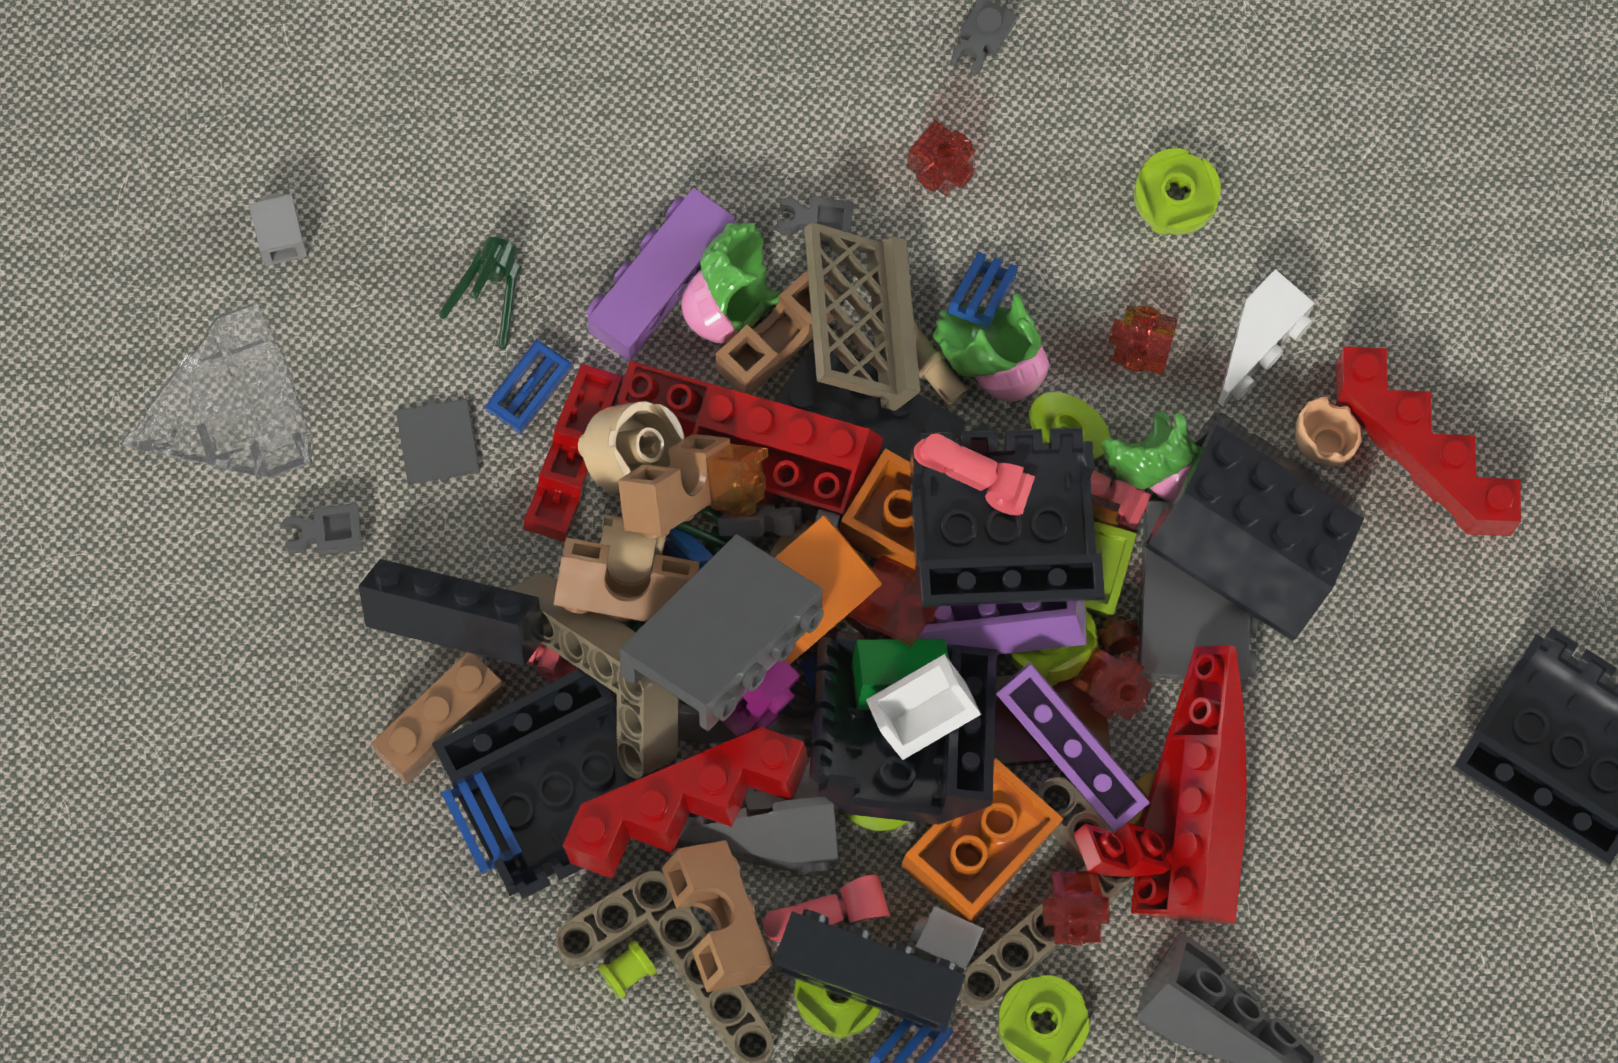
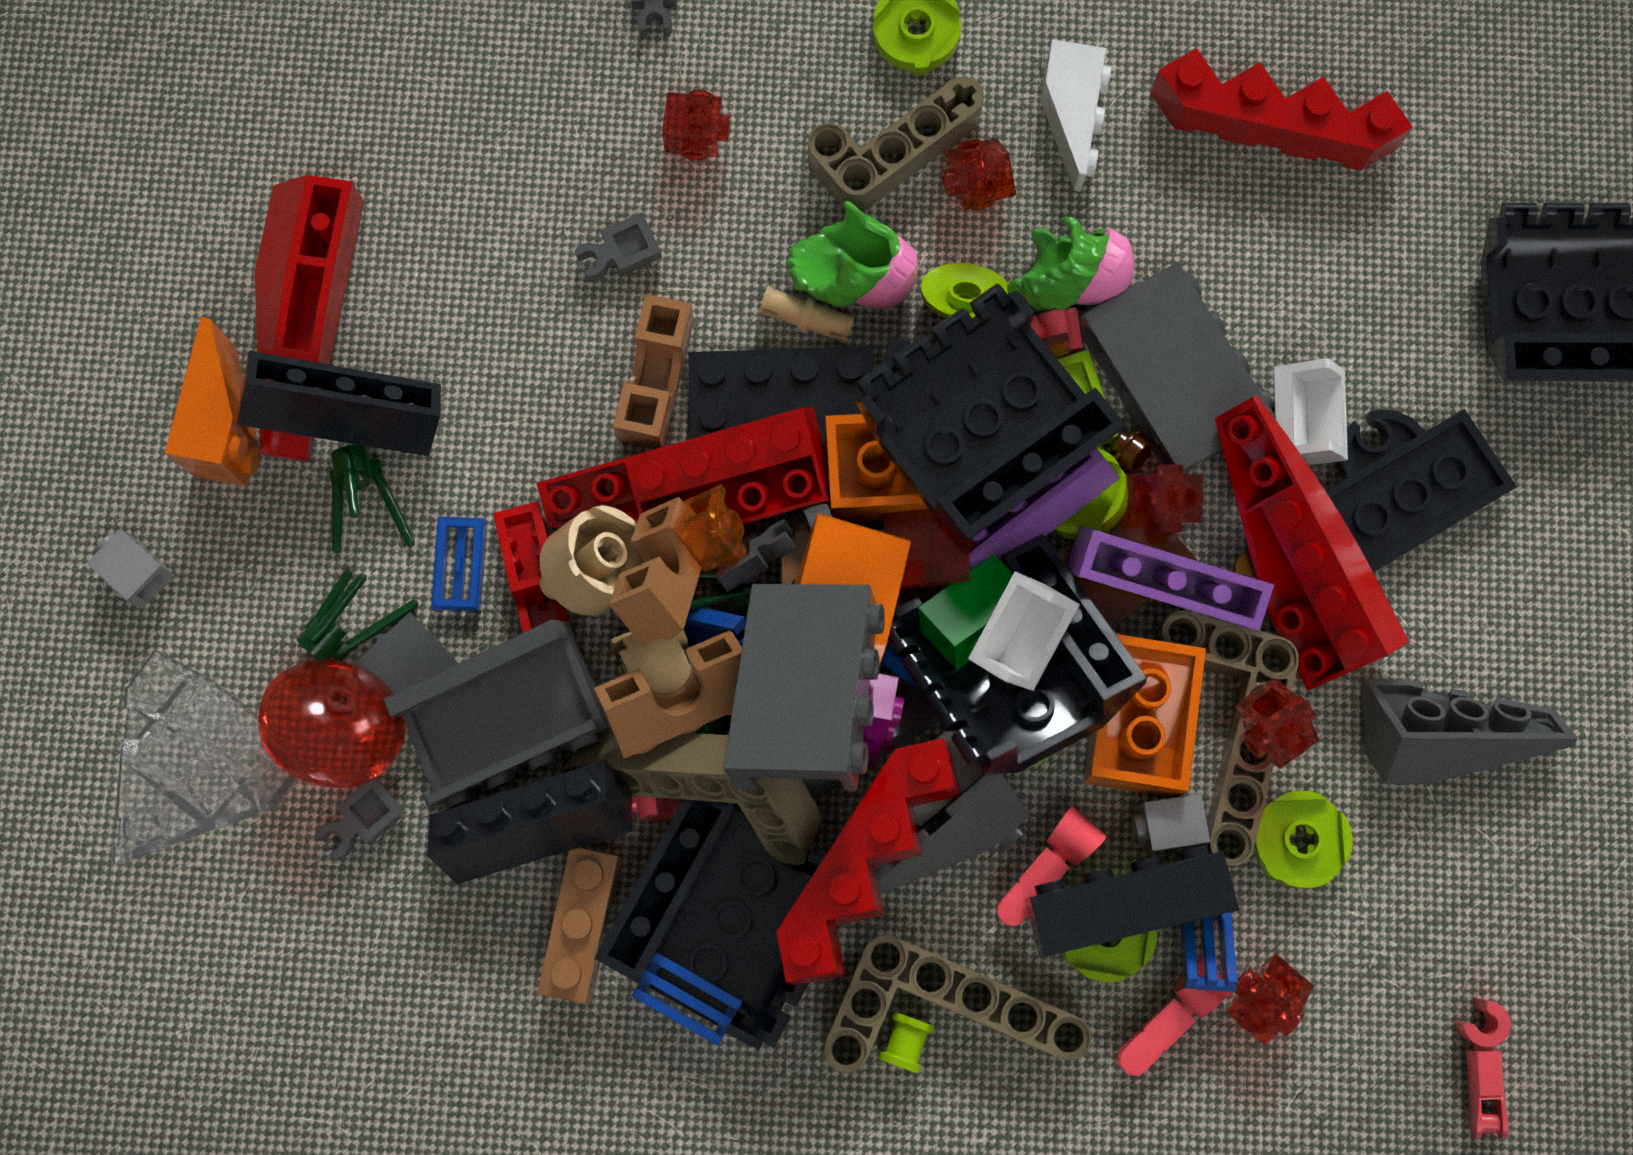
camera: 30 degrees left, 5 degrees up
(341, 453) = (327, 741): none -> clear red dish
(390, 373) = (325, 634): none -> dark green plant
(414, 157) = (205, 425): none -> orange slope
(484, 516) = (501, 713): none -> dark grey panel
(515, 205) = (336, 408): none -> black brick
(539, 107) = (304, 280): none -> red wedge
(658, 276) = (511, 386): medium lavender brick -> none
(711, 880) = (935, 914): medium nougat arch -> none
(729, 286) = (583, 358): bright green hair -> none
(889, 319) = (740, 293): dark tan fence -> none
(991, 271) = (805, 198): blue tile -> none
(1005, 482) = (962, 378): coral piece -> none
(1100, 270) = (899, 138): none -> dark tan beam
(1122, 853) = (1280, 644): red slope -> none
(1257, 527) = (1198, 277): black slope -> none
(1283, 694) = (1313, 409): none -> white panel
(1327, 433) = (1191, 156): light nougat hair -> none
(1327, 805) = (1414, 482): none -> black plate

